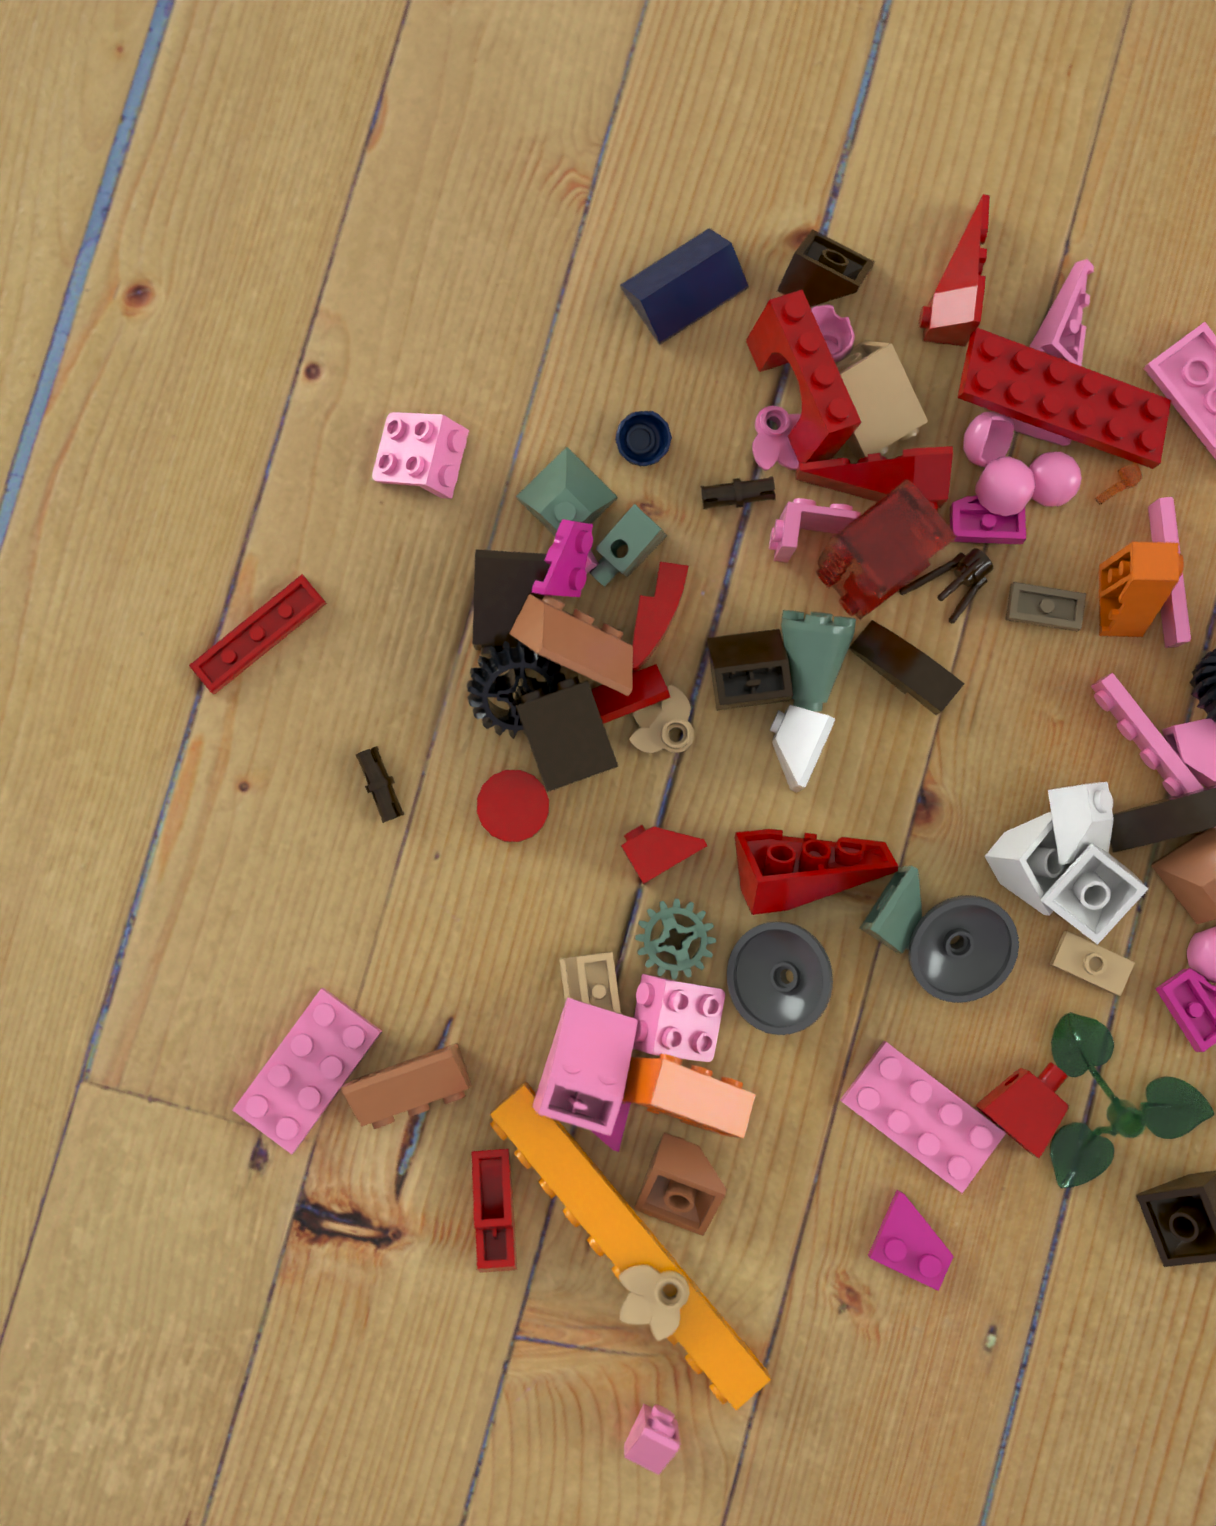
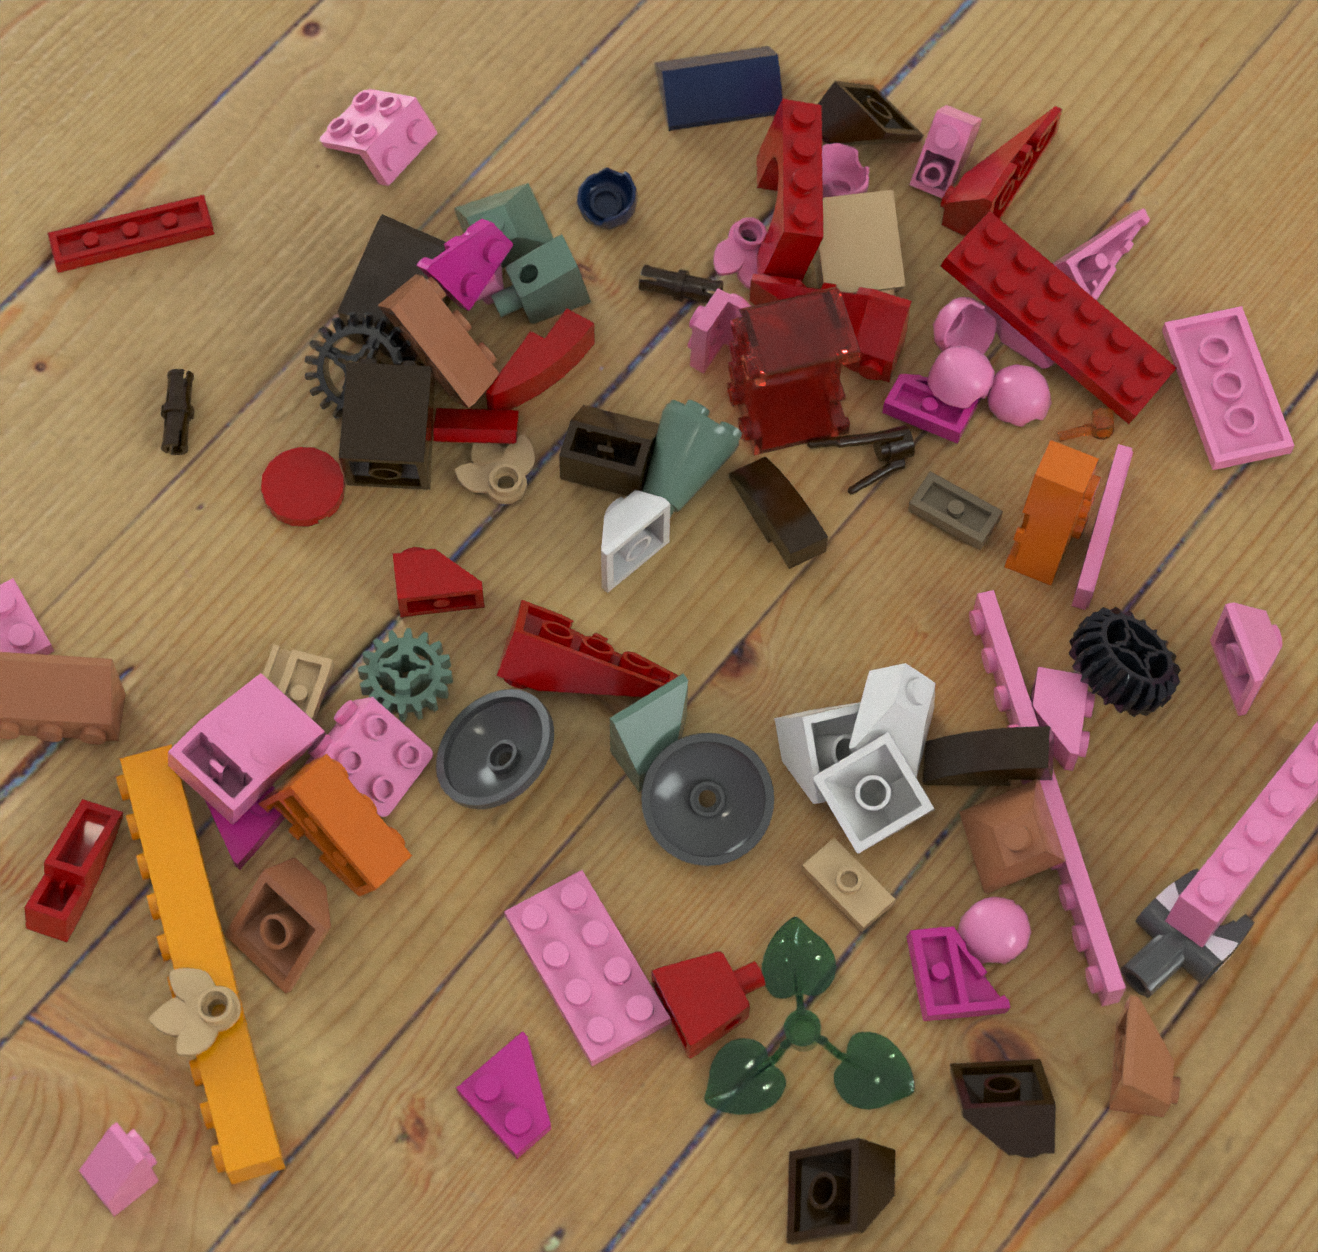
camera: 20 degrees right, 20 degrees down
(904, 272) = (945, 150): none -> bright pink slope

